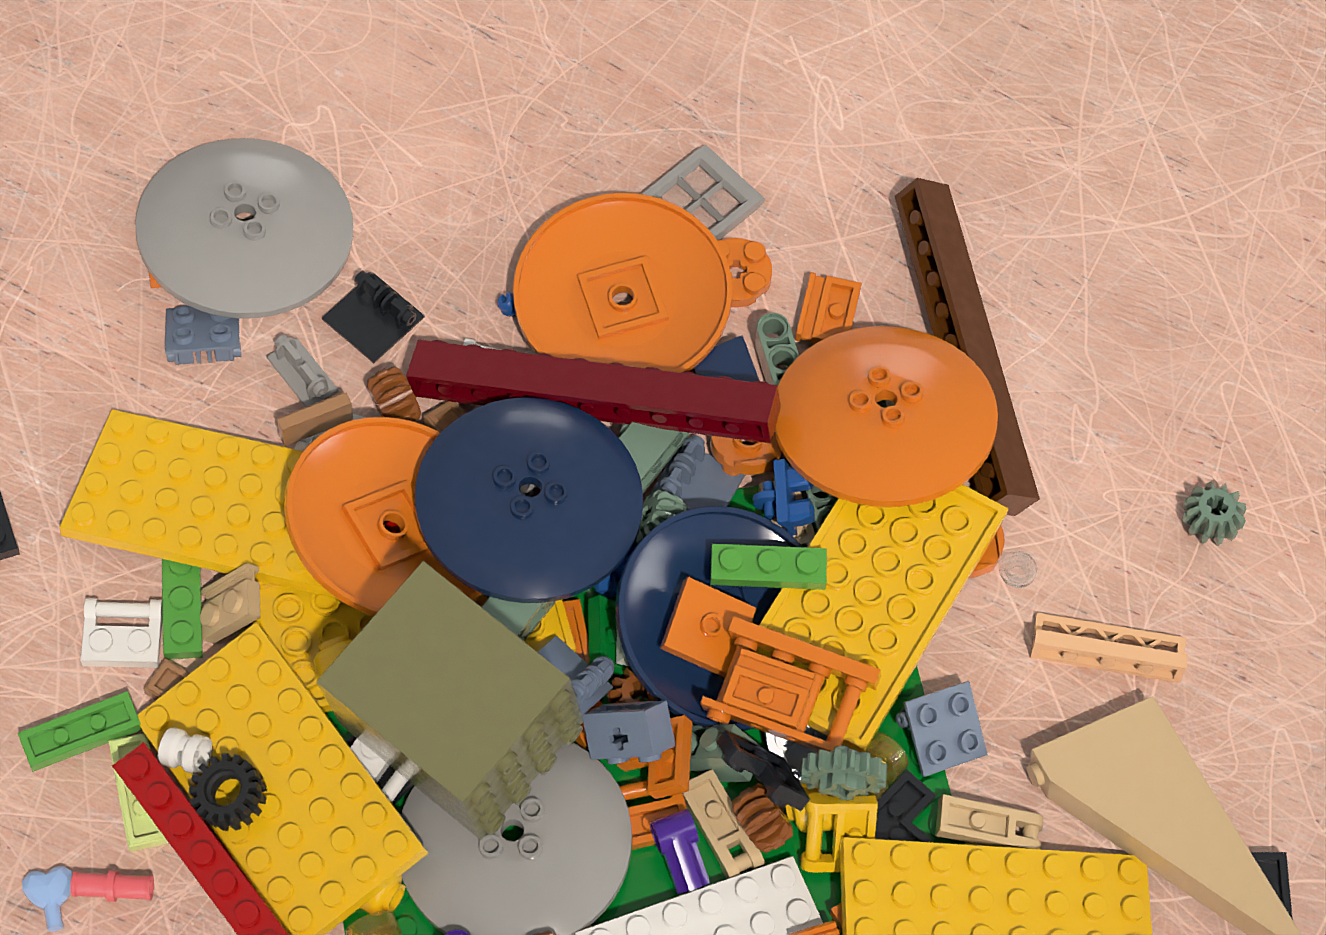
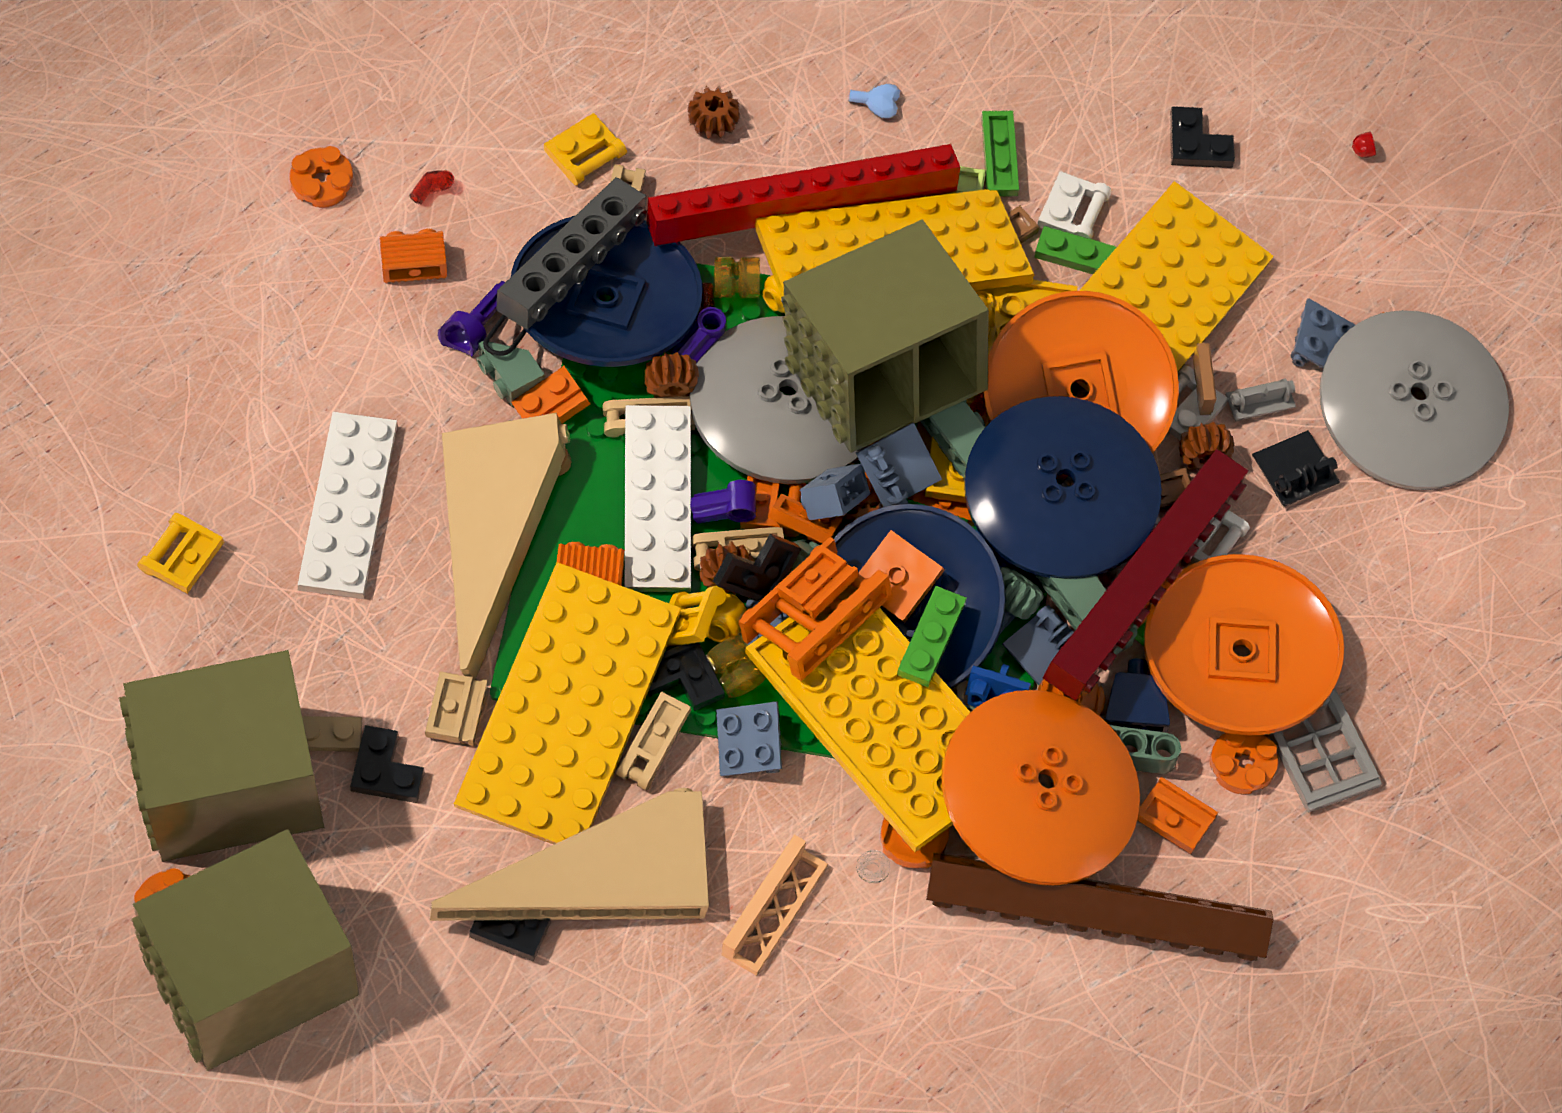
camera: 110 degrees right, 0 degrees up
(112, 886) = (867, 135): coral pin -> none
(184, 750) = (942, 193): white wheel -> none
(230, 603) = (1061, 272): tan plate -> none
(242, 806) = (899, 195): black tyre -> none
(843, 773) = (724, 609): sand green gear -> none
(1208, 500) = (859, 1033): sand green gear -> none

